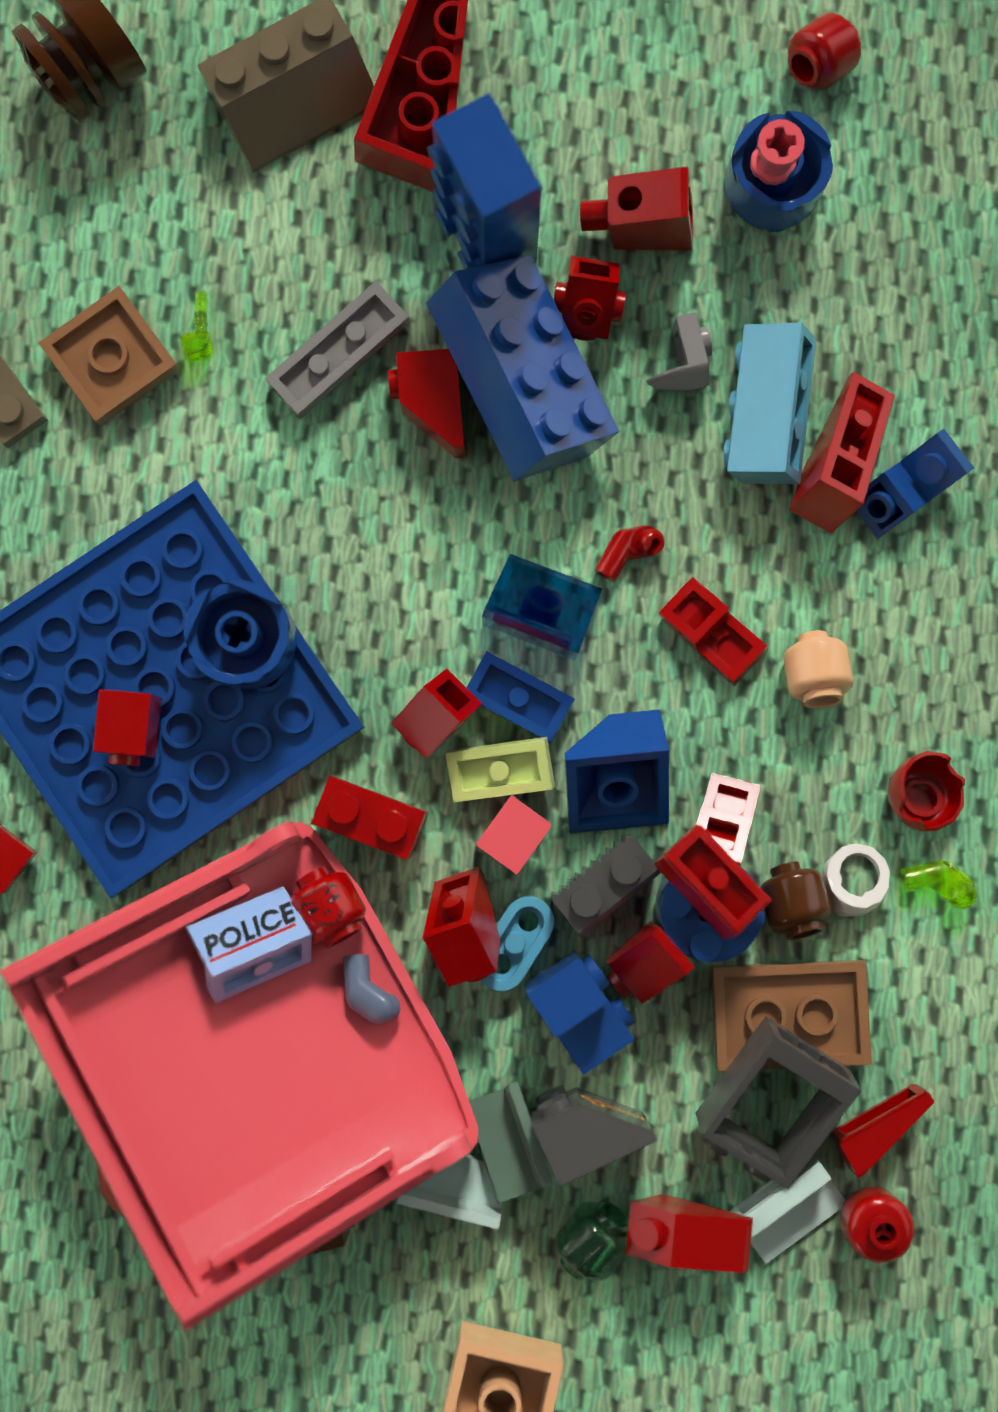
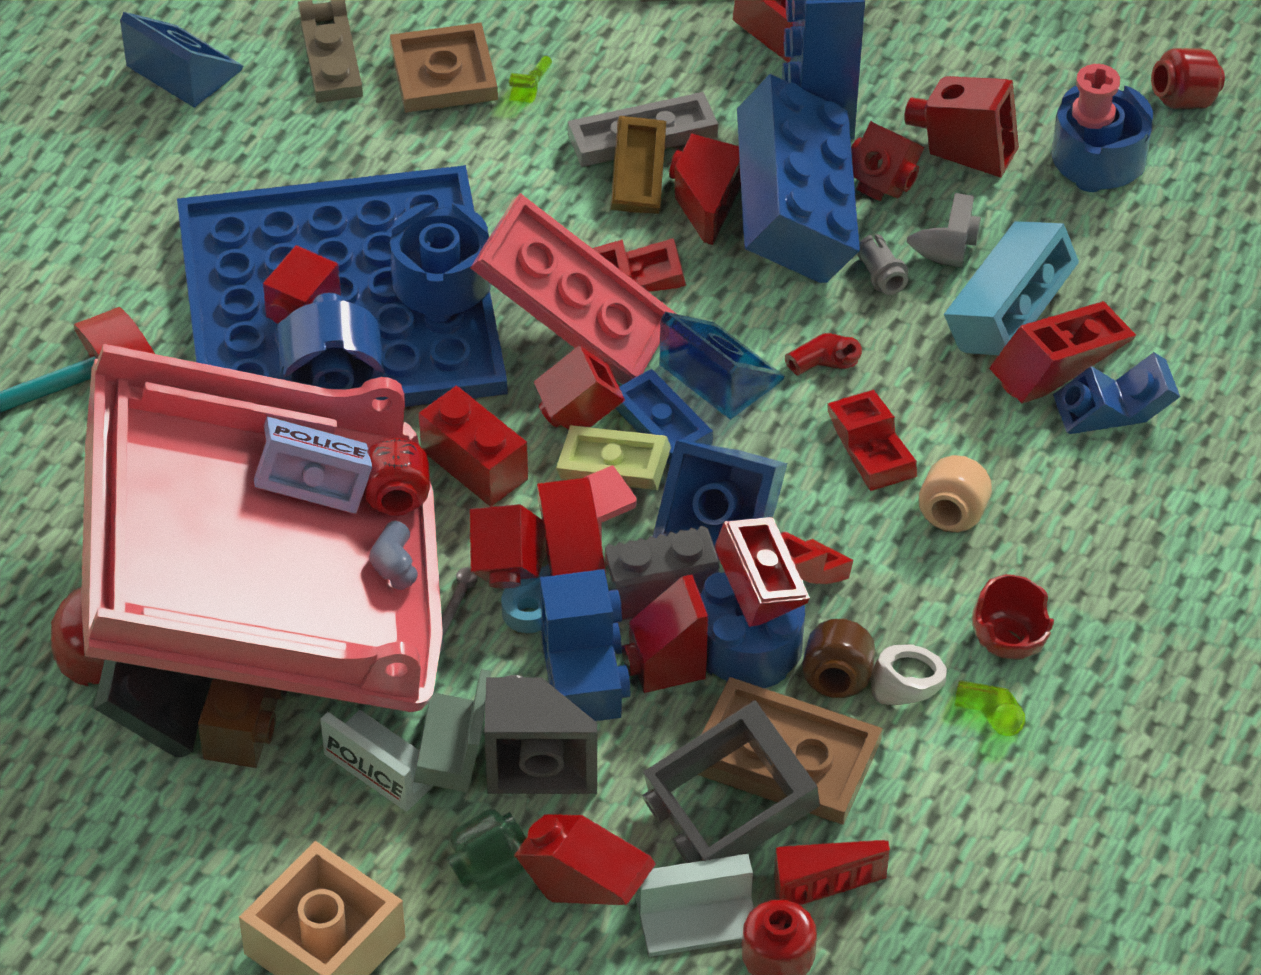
camera: 25 degrees right, 35 degrees down
(199, 806) = (330, 344): none -> blue brick
(357, 402) = (638, 165): none -> pearl gold tile
(378, 609) = (572, 289): none -> coral tile
(406, 528) = (652, 266): none -> red slope
(432, 986) = (465, 580): none -> light grey hinge
(511, 890) = (570, 526): none -> red slope
(636, 420) = (887, 272): none -> light grey pin

